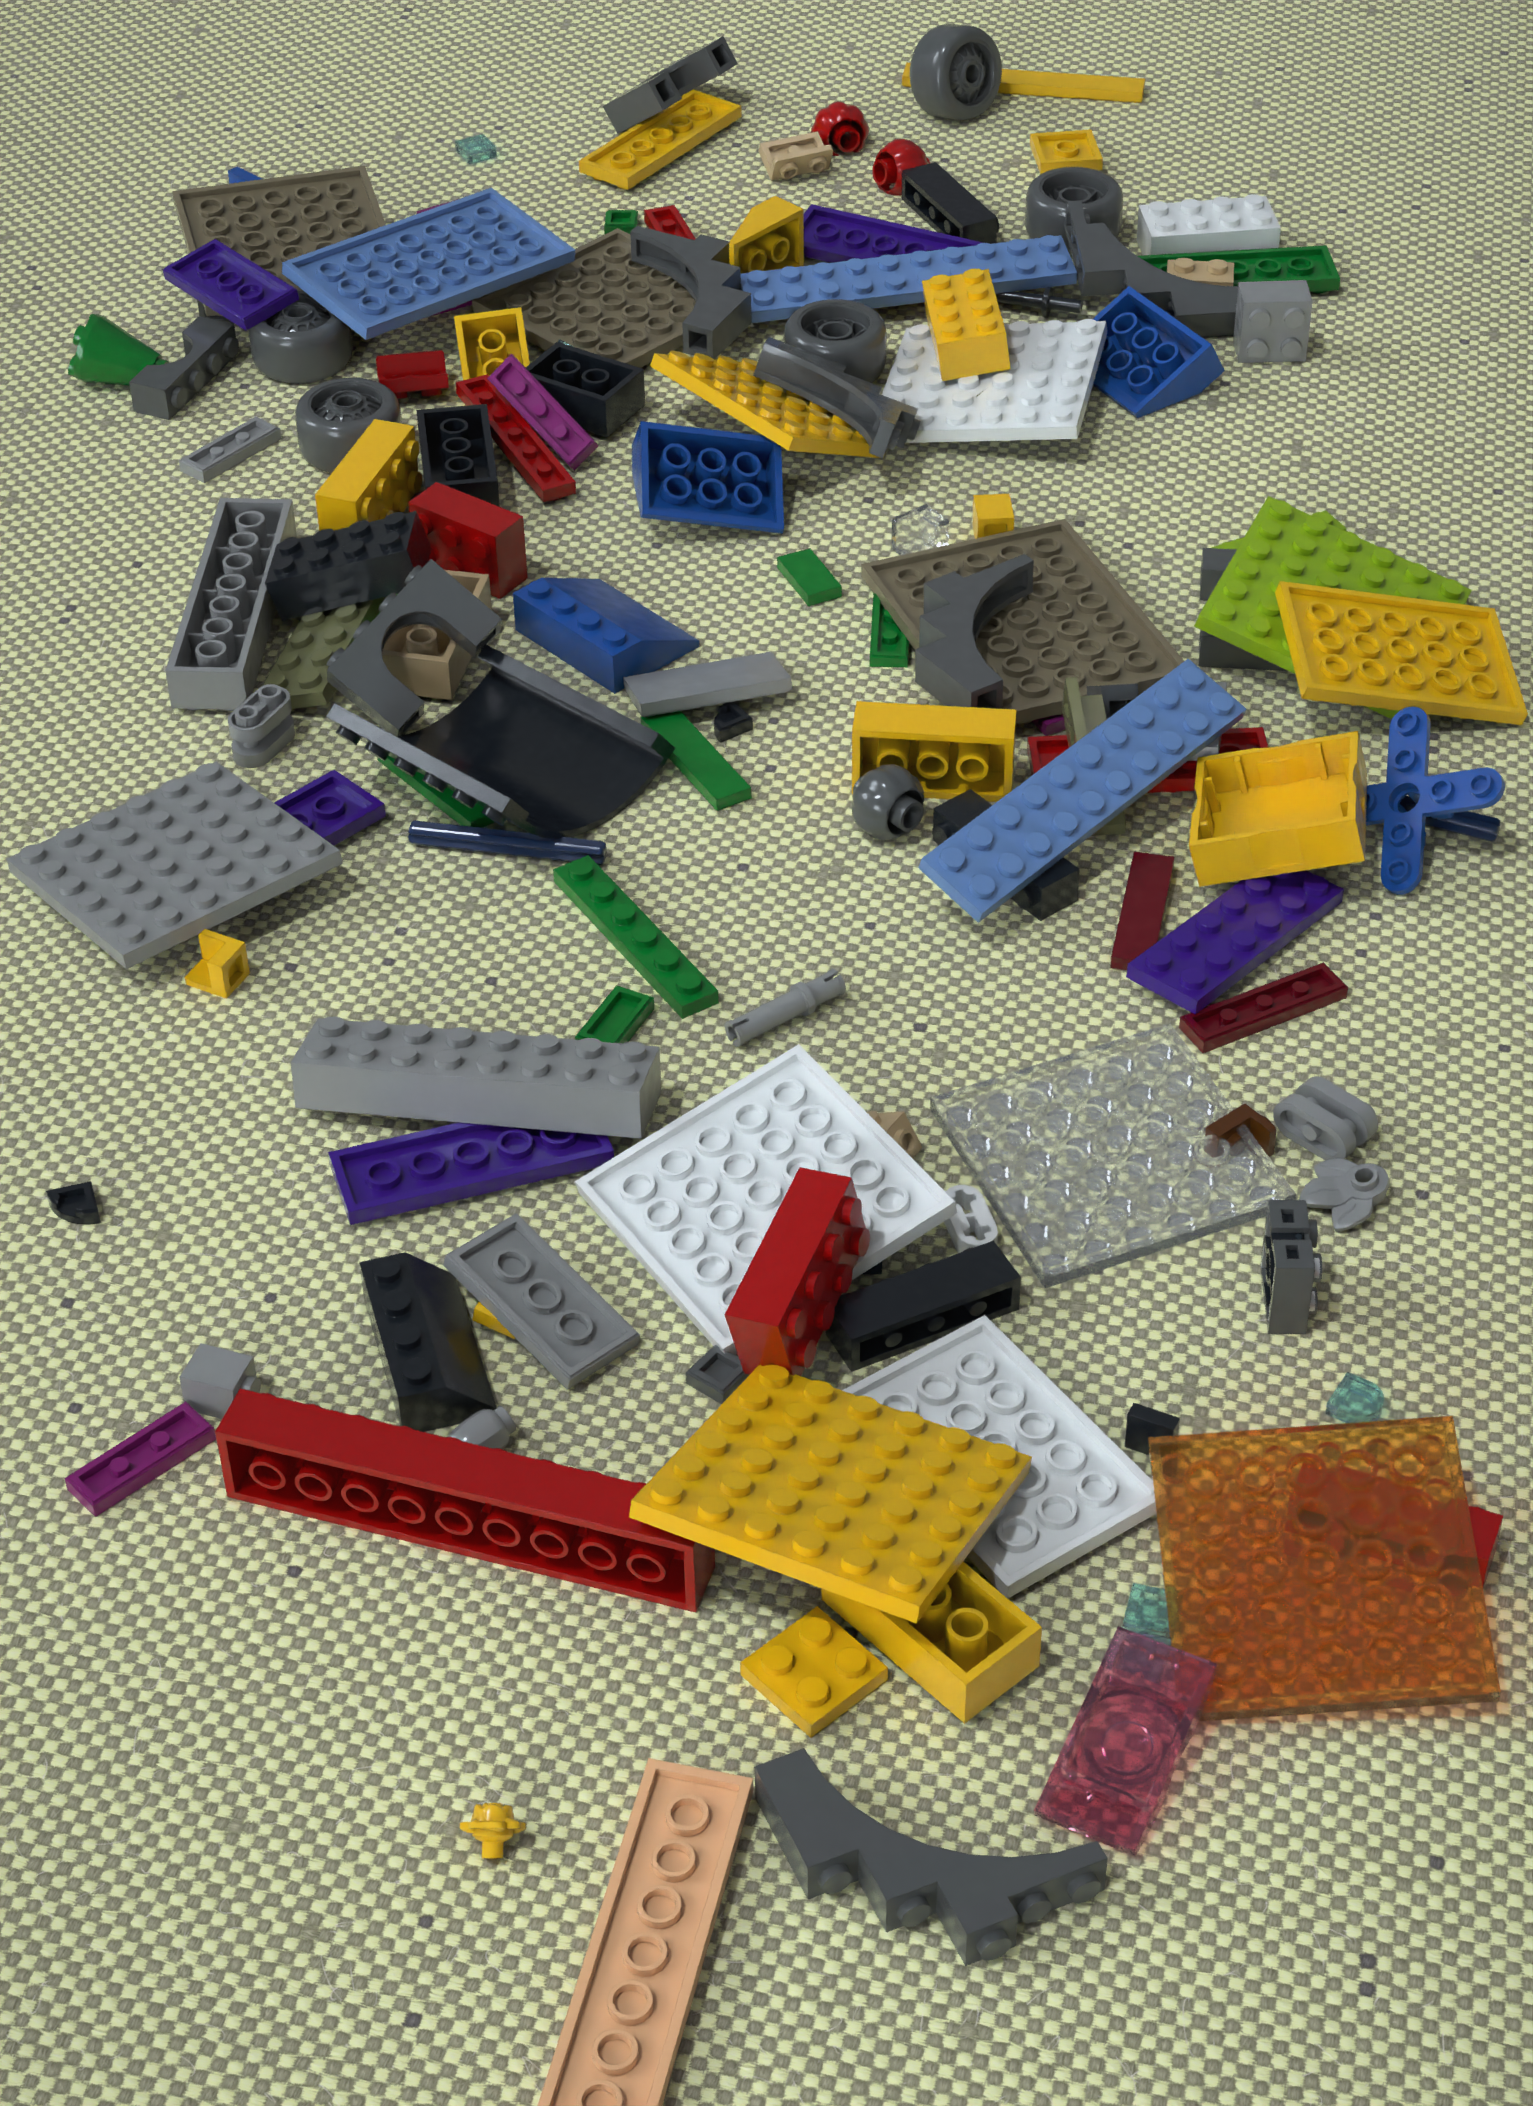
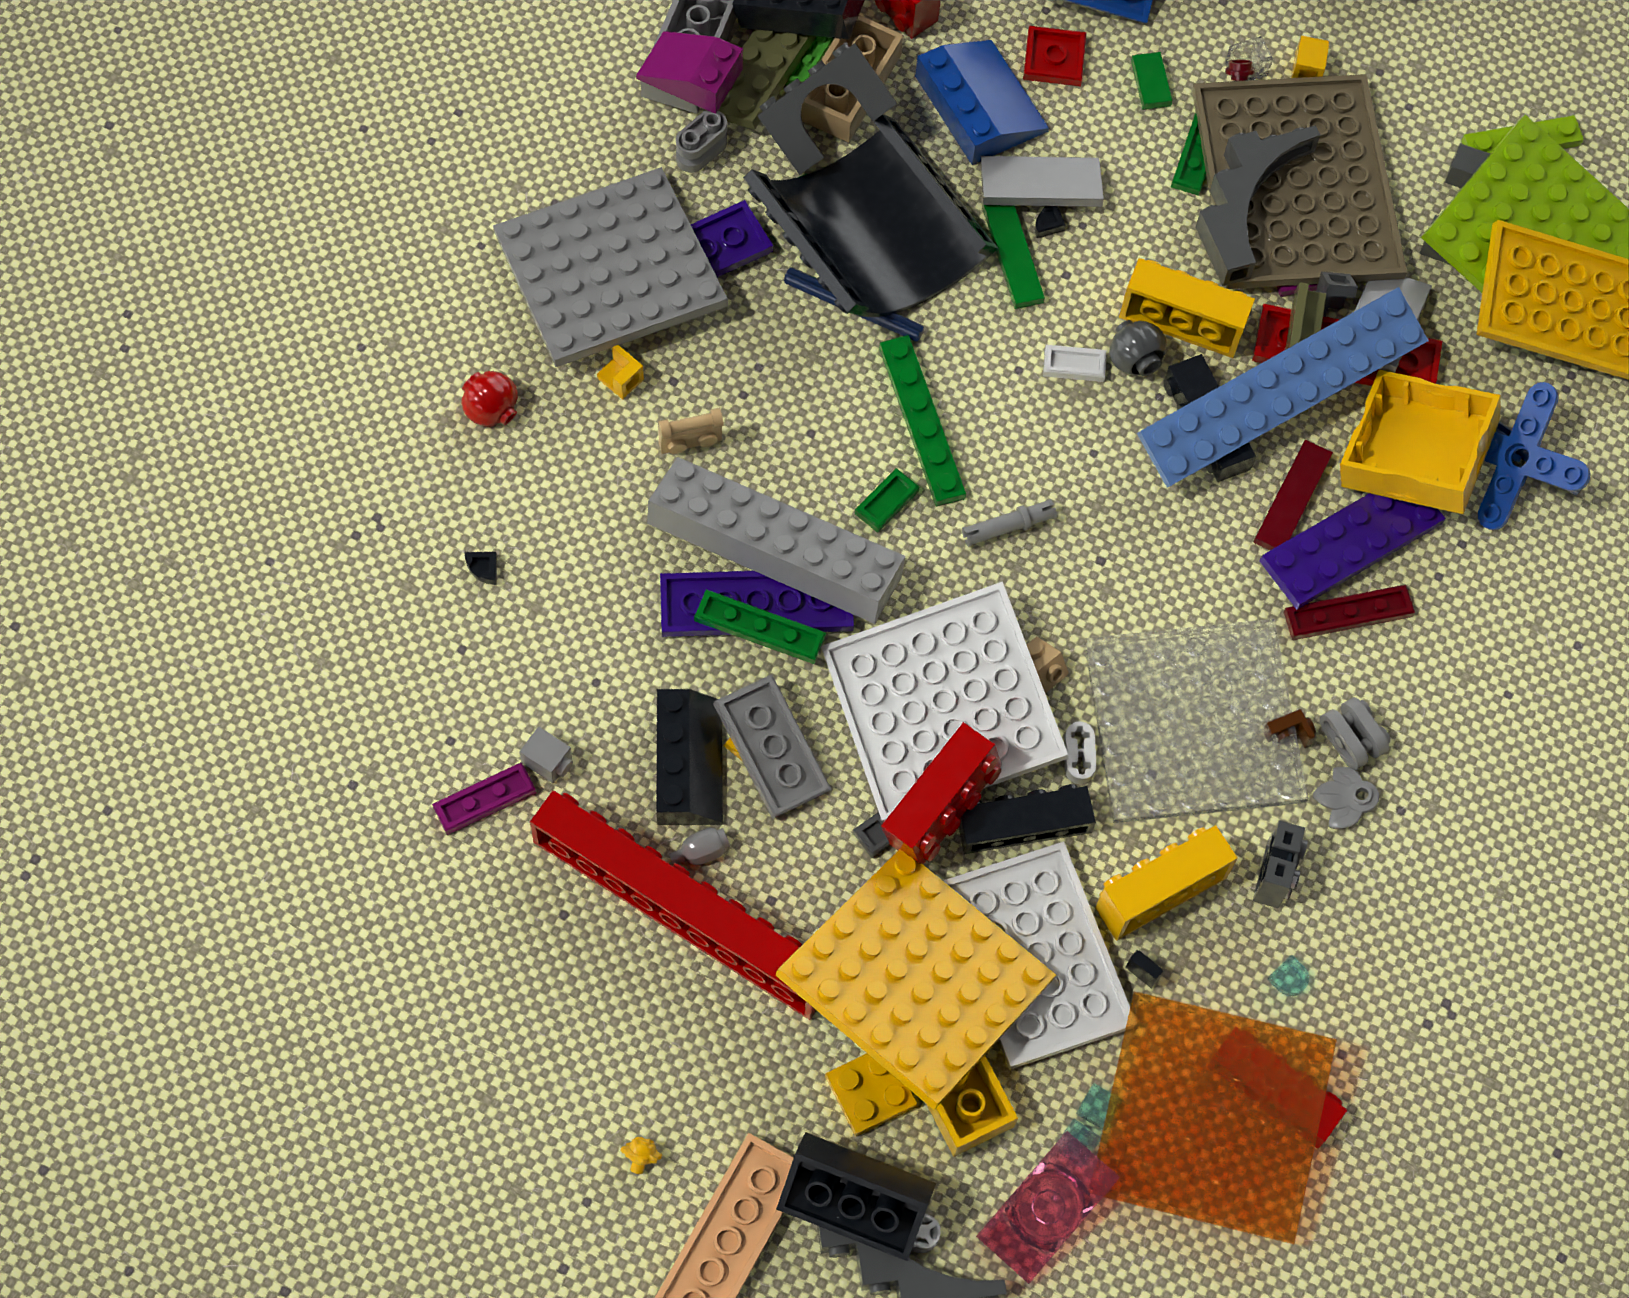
camera: 10 degrees right, 25 degrees up
(43, 1024) = (489, 398): none -> red plant
(234, 643) = (693, 68): none -> magenta slope
(332, 991) = (690, 432): none -> tan plate
(484, 1174) = (760, 626): none -> green tile
(682, 578) = (1054, 56): none -> red tile
(812, 843) = (1074, 363): none -> white tile
(836, 1780) = (855, 1196): none -> black slope
(912, 540) = (1240, 69): none -> dark red plate
(948, 1812) = (930, 1232): none -> white wheel
(1141, 1320) = (1165, 881): none -> yellow brick

